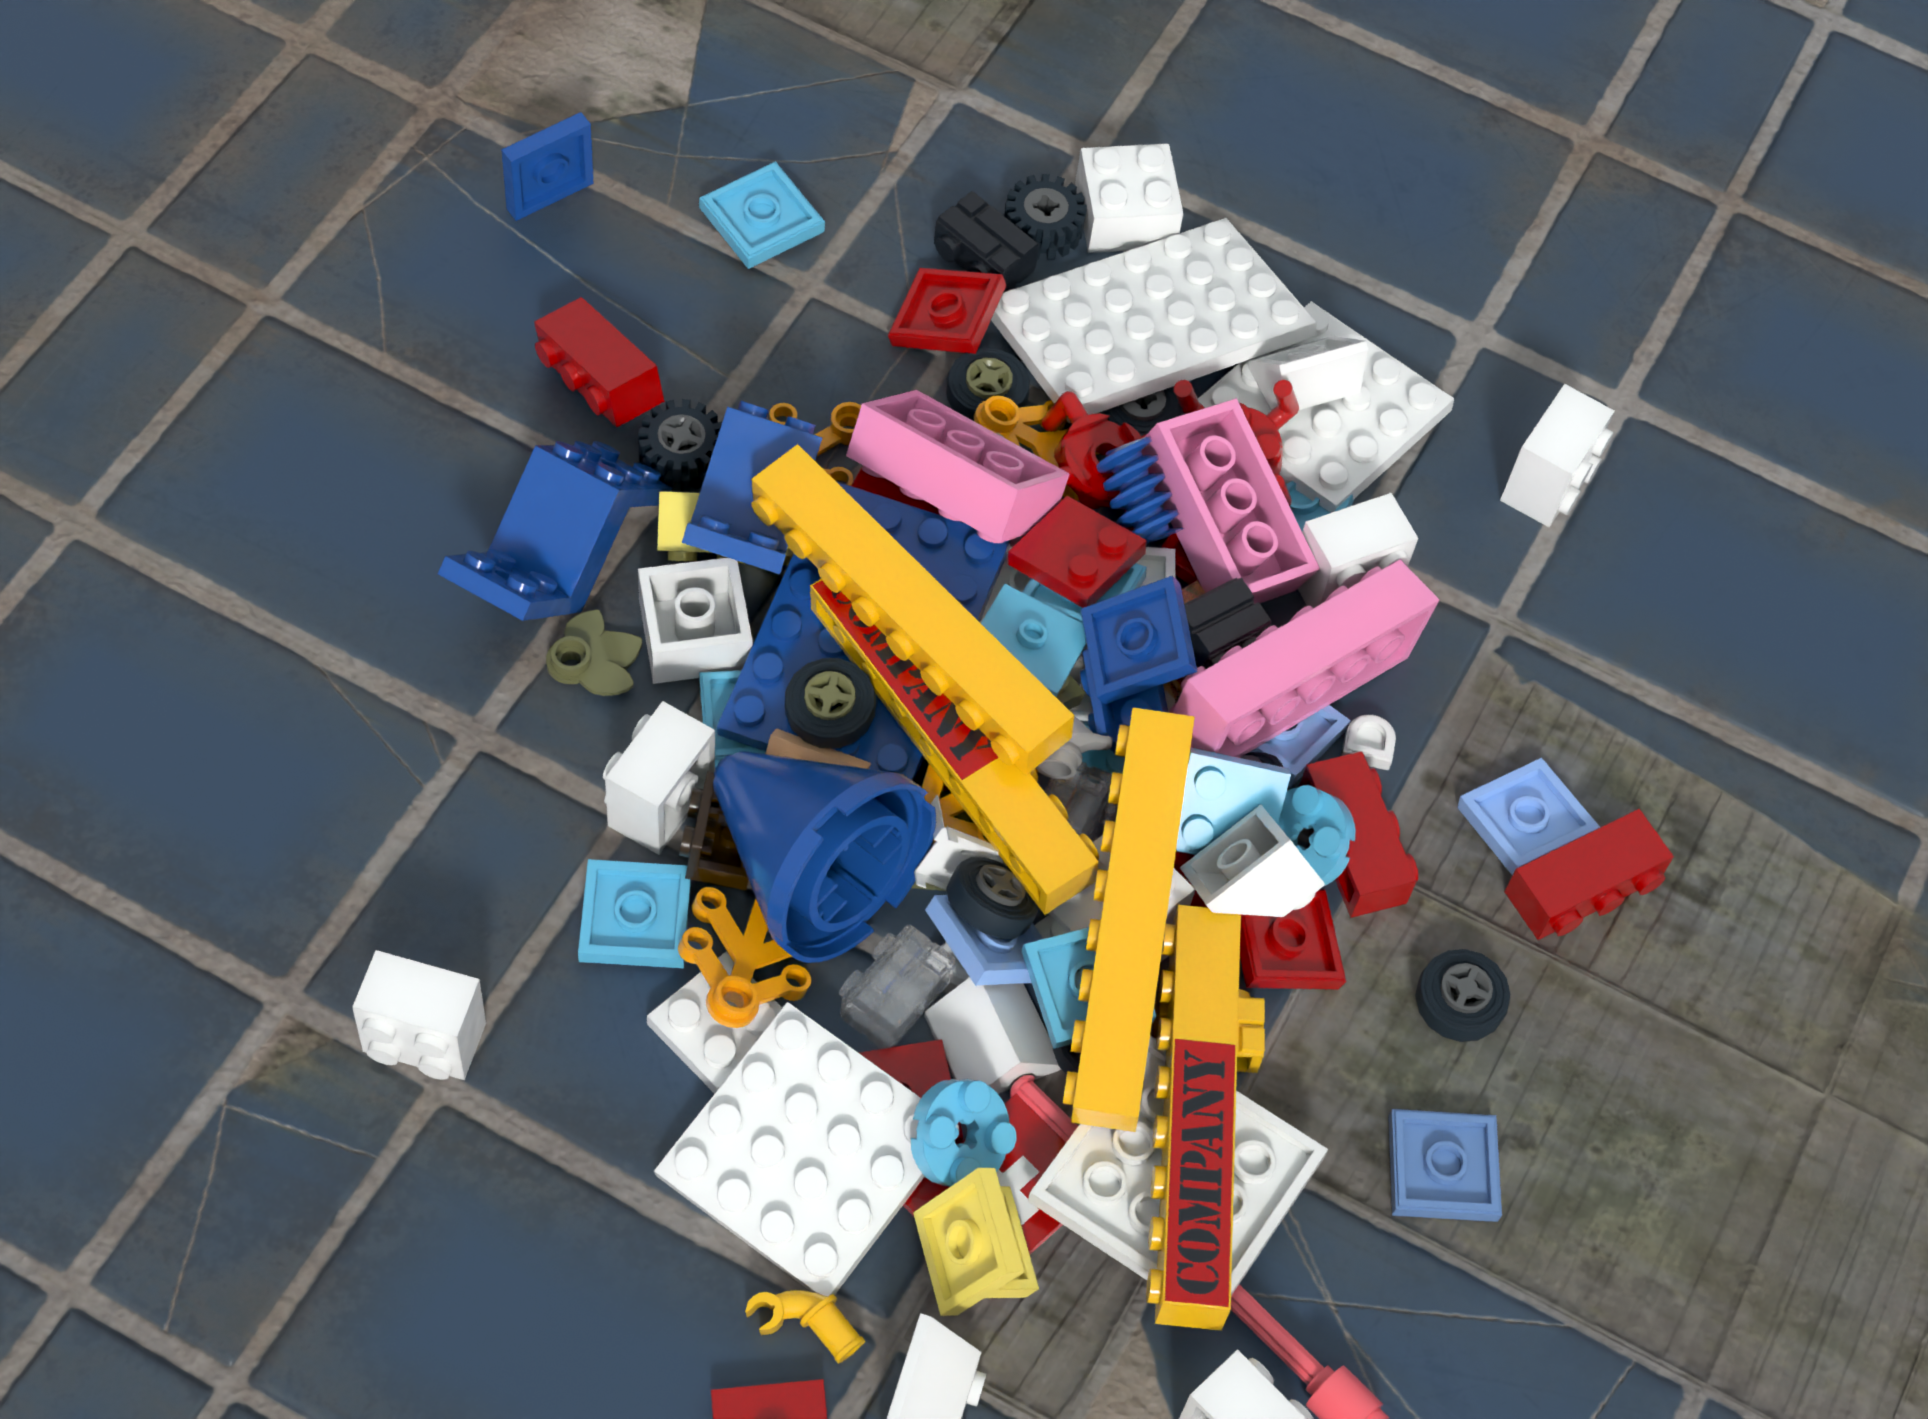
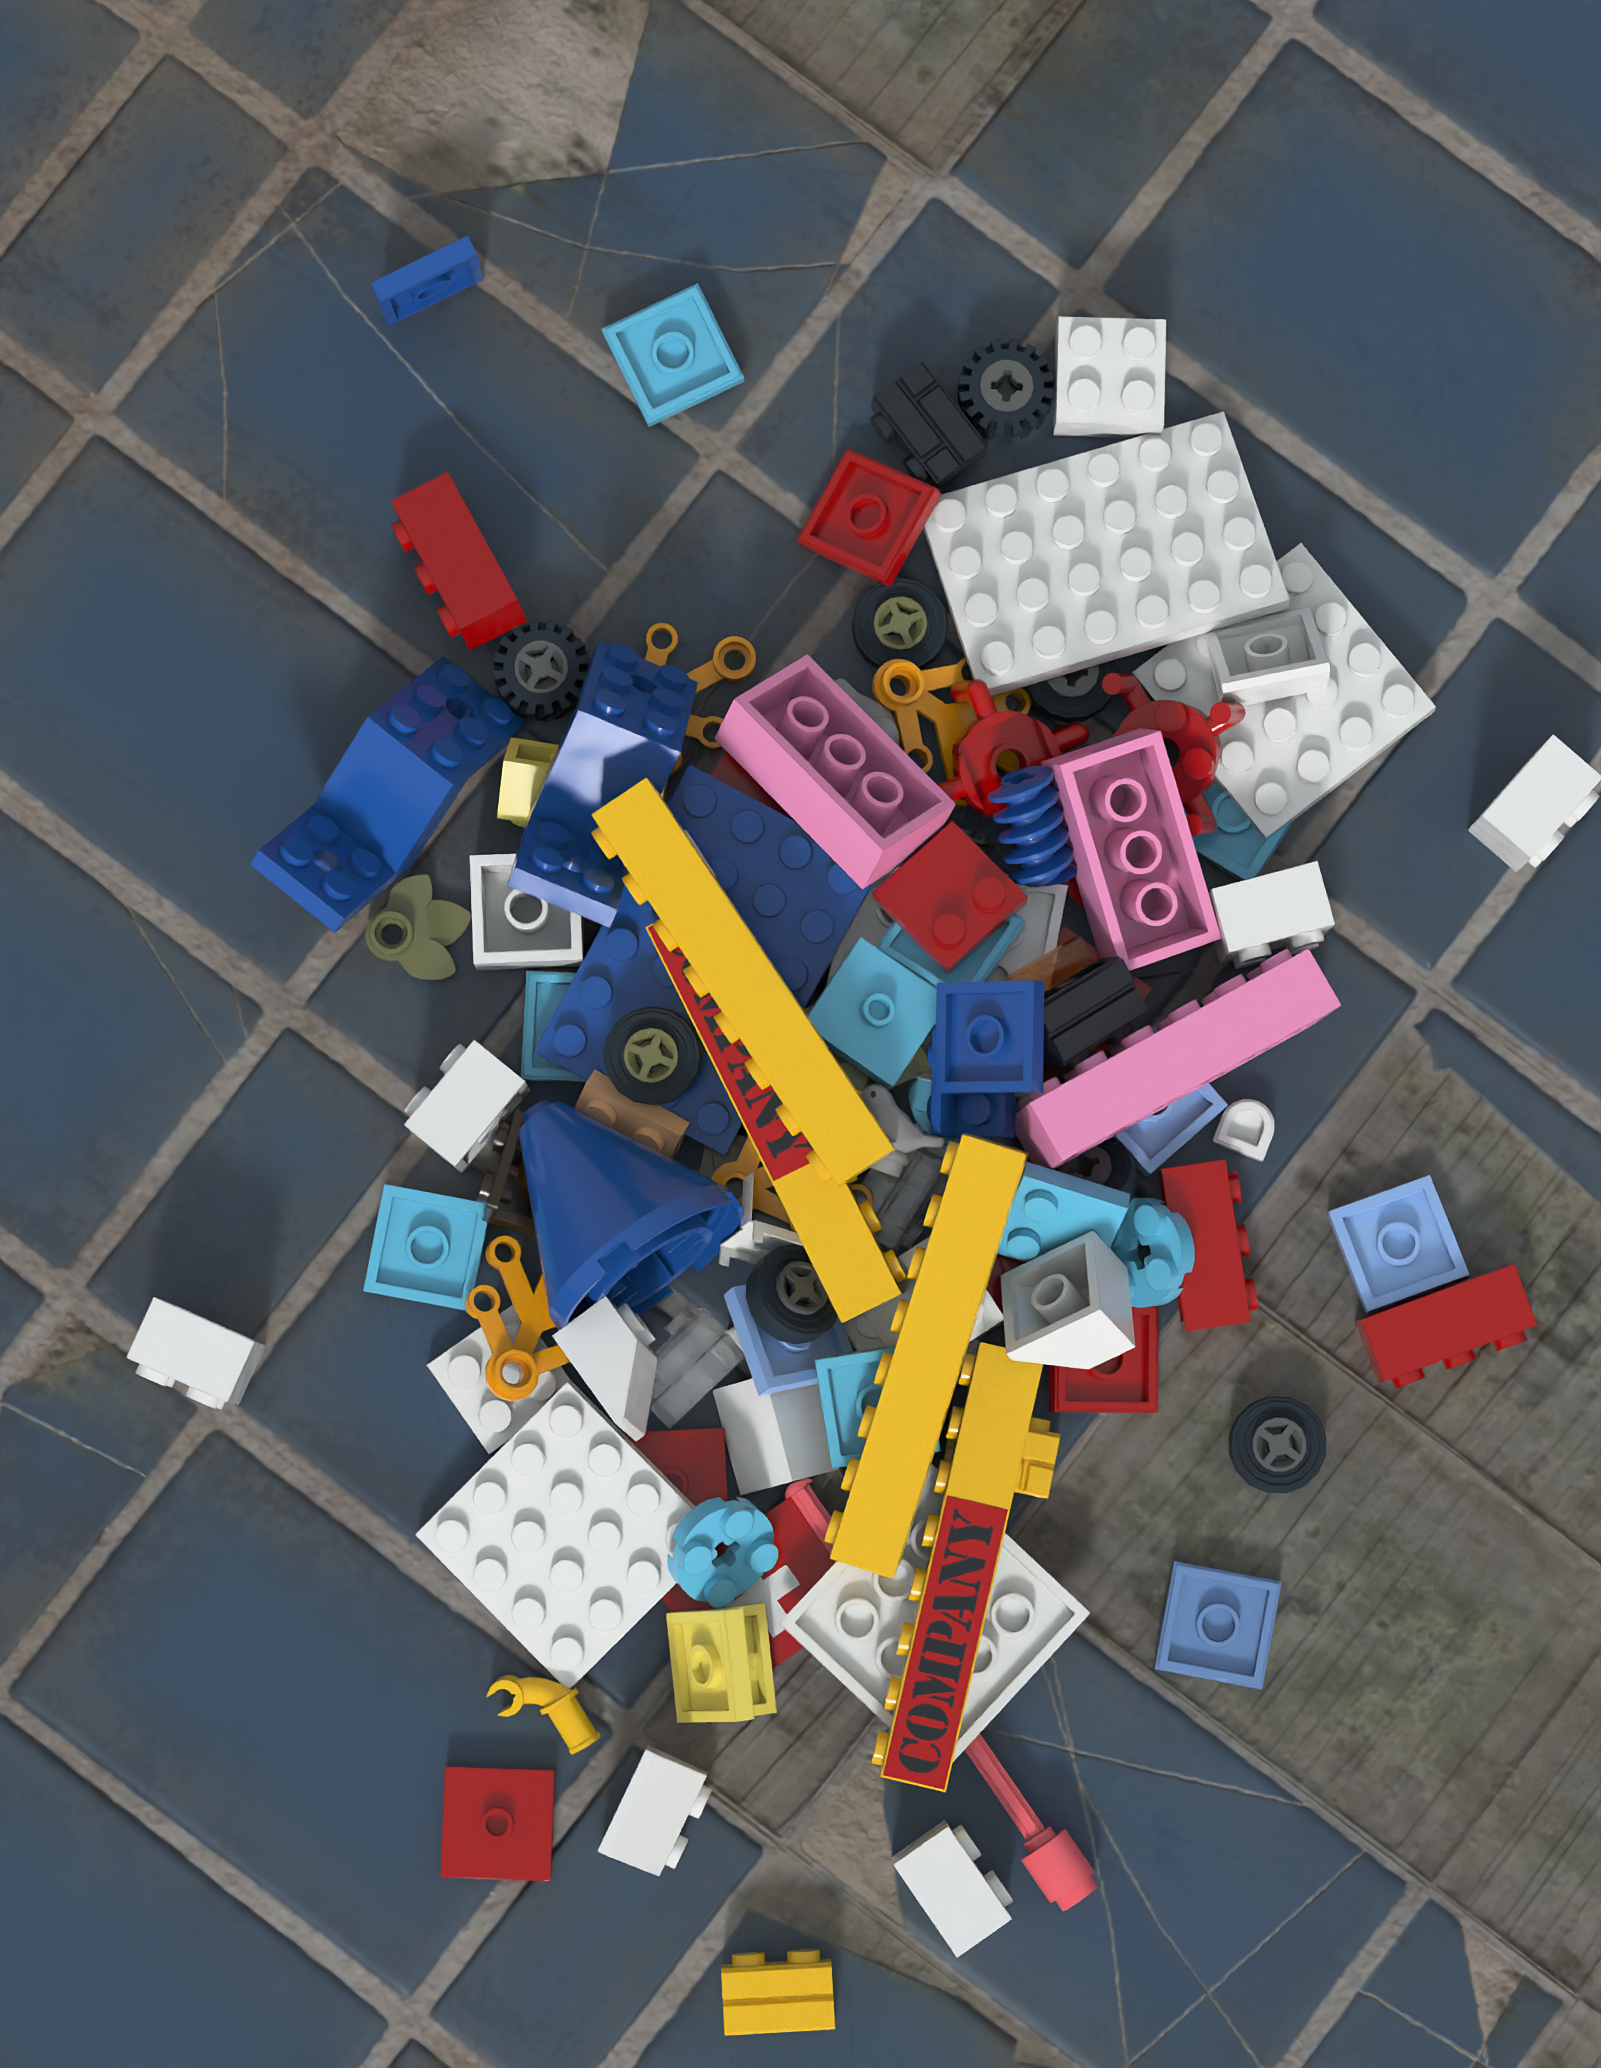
camera: 15 degrees right, 25 degrees up
(829, 959) = (614, 1360): none -> white slope

